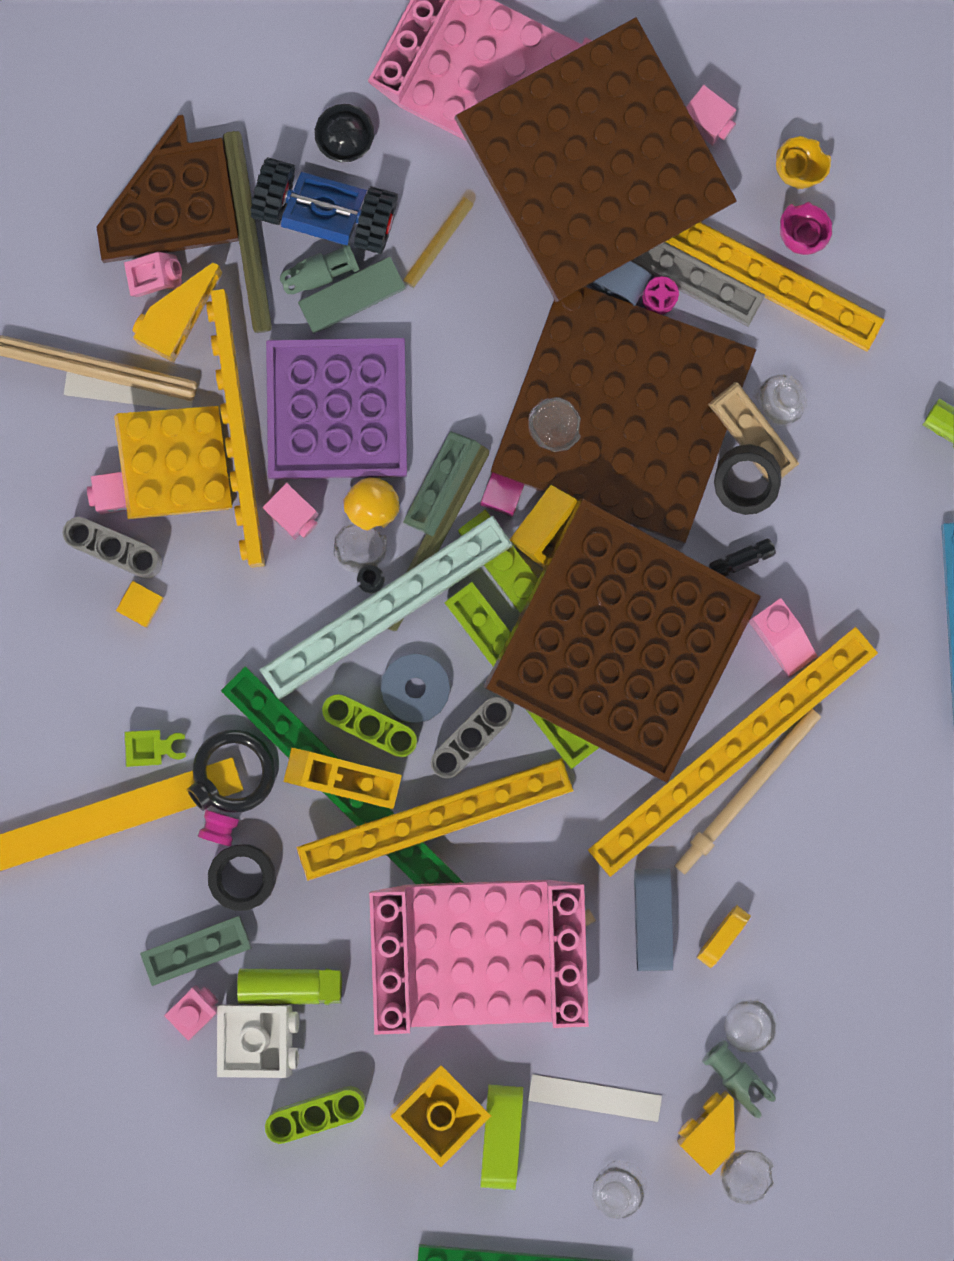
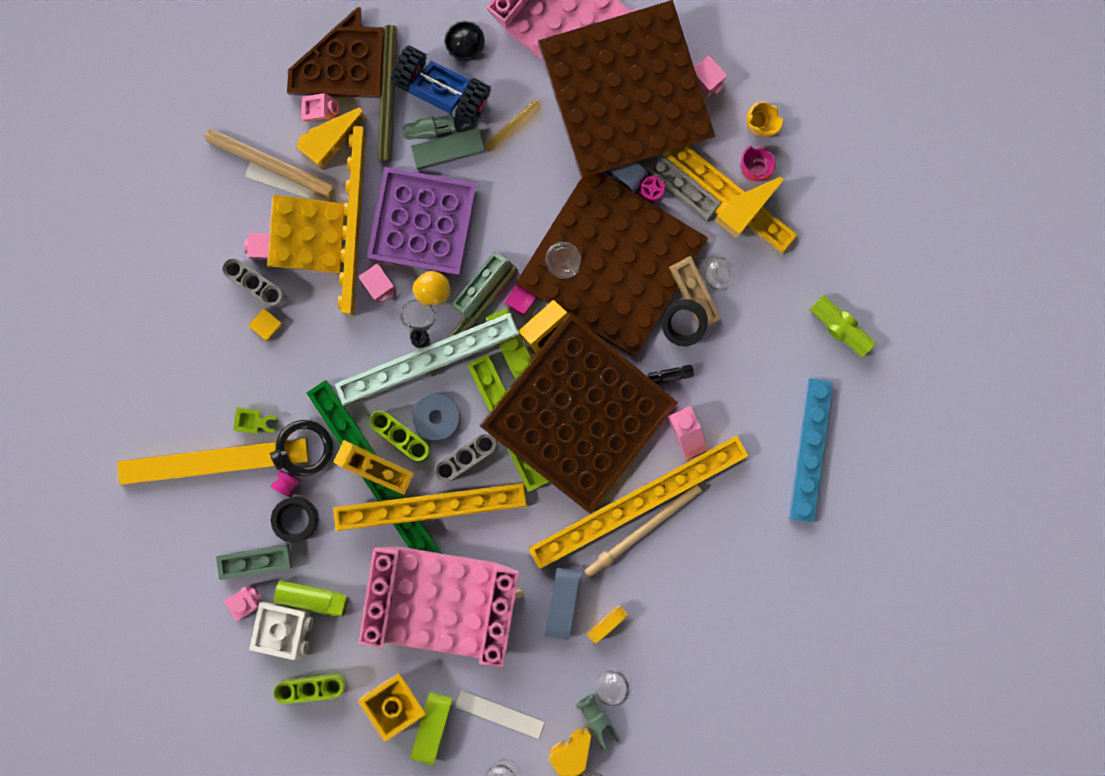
camera: 10 degrees right, 0 degrees up
(797, 298) = (742, 208): none -> yellow slope

